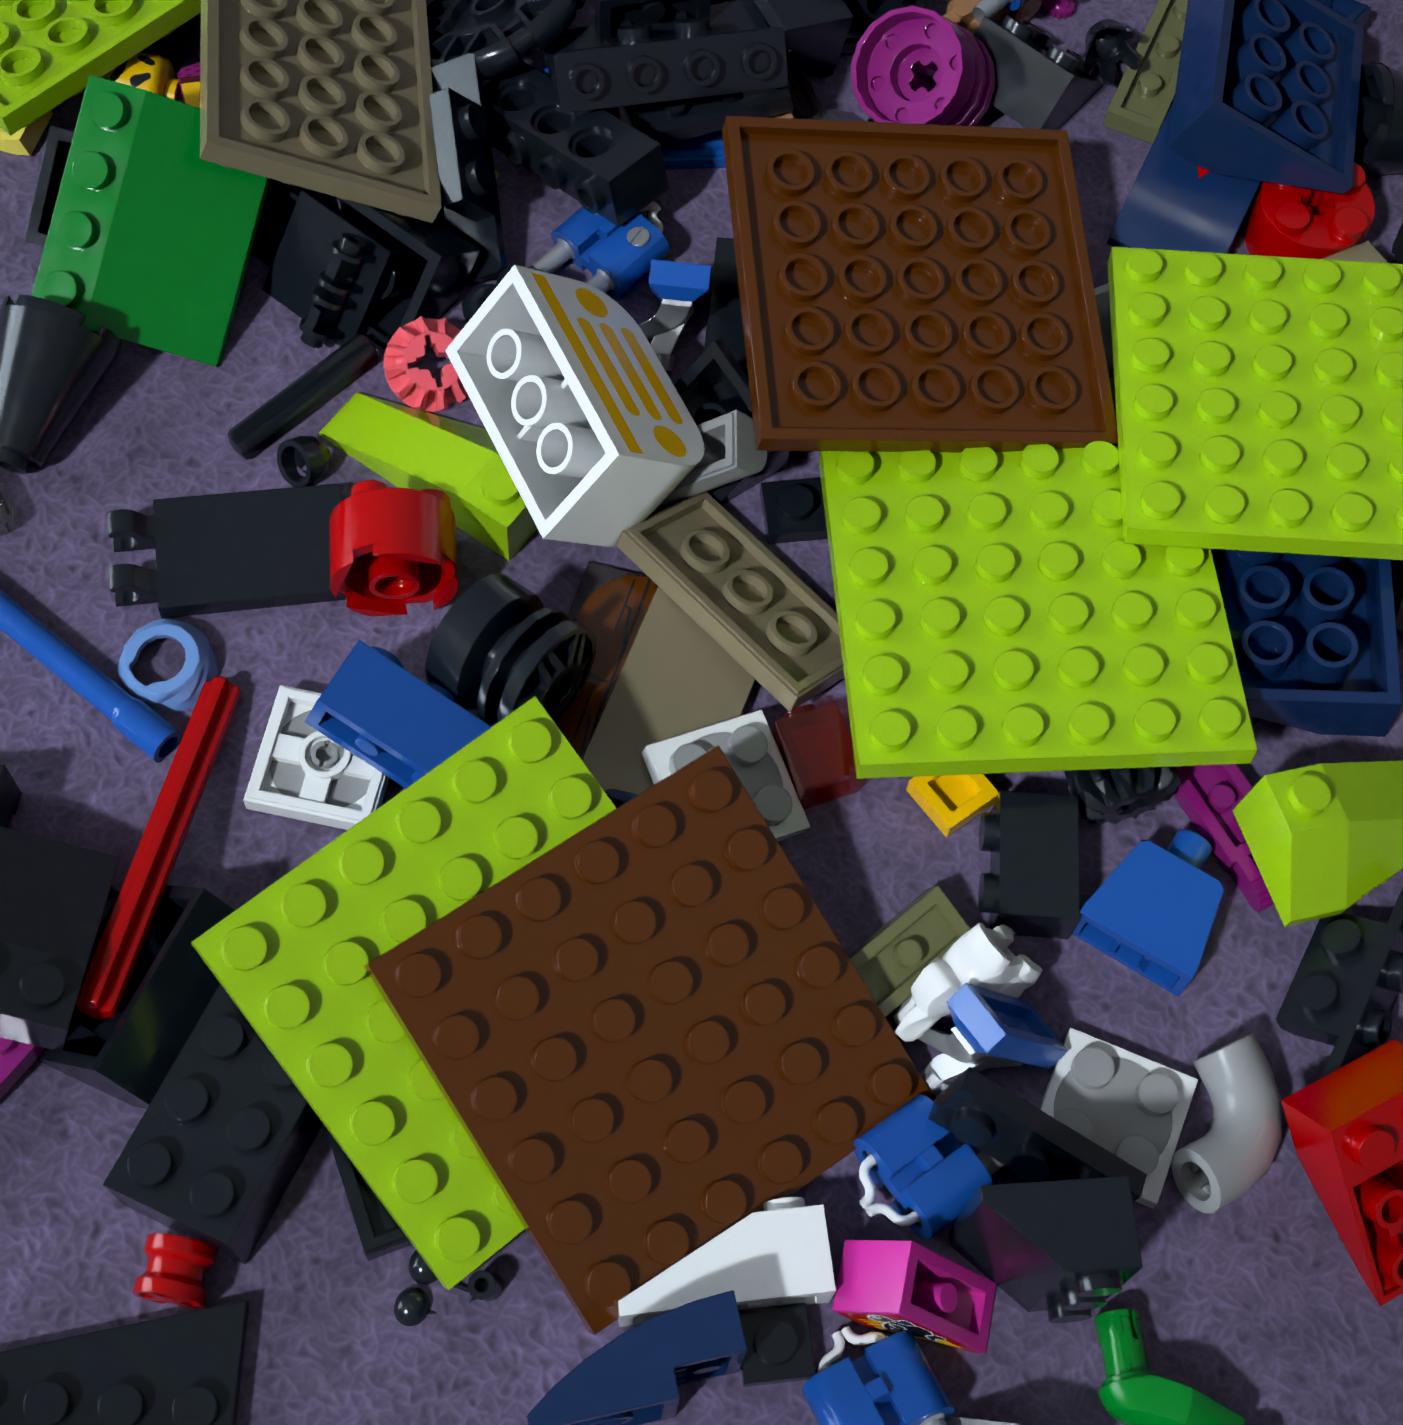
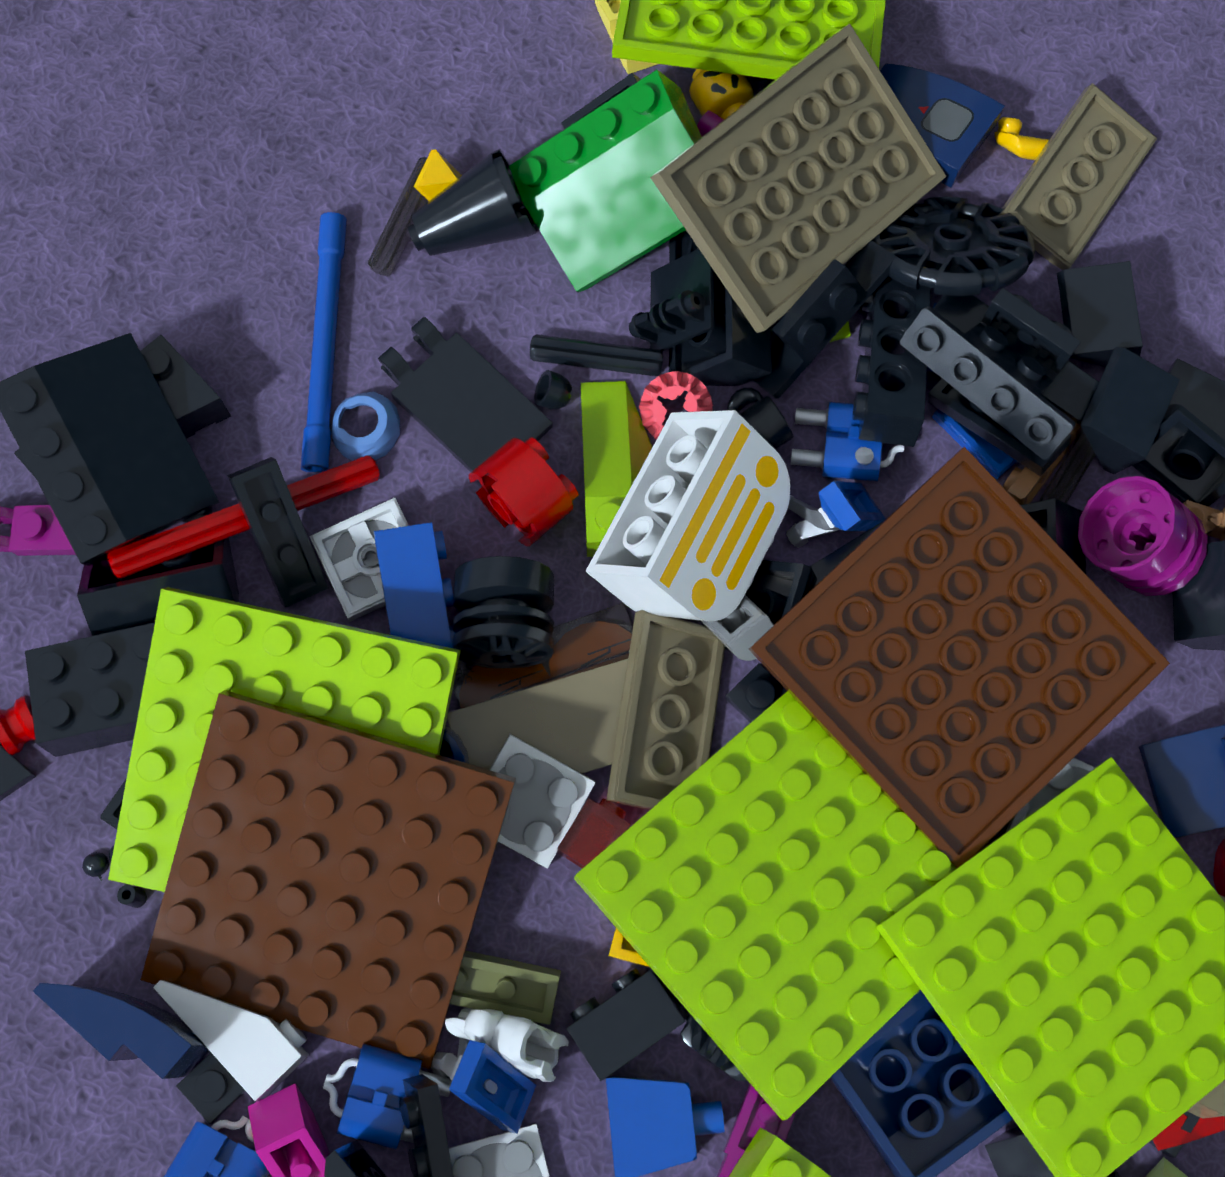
camera: 55 degrees right, 10 degrees up
(212, 813) = (278, 531): none -> black plate

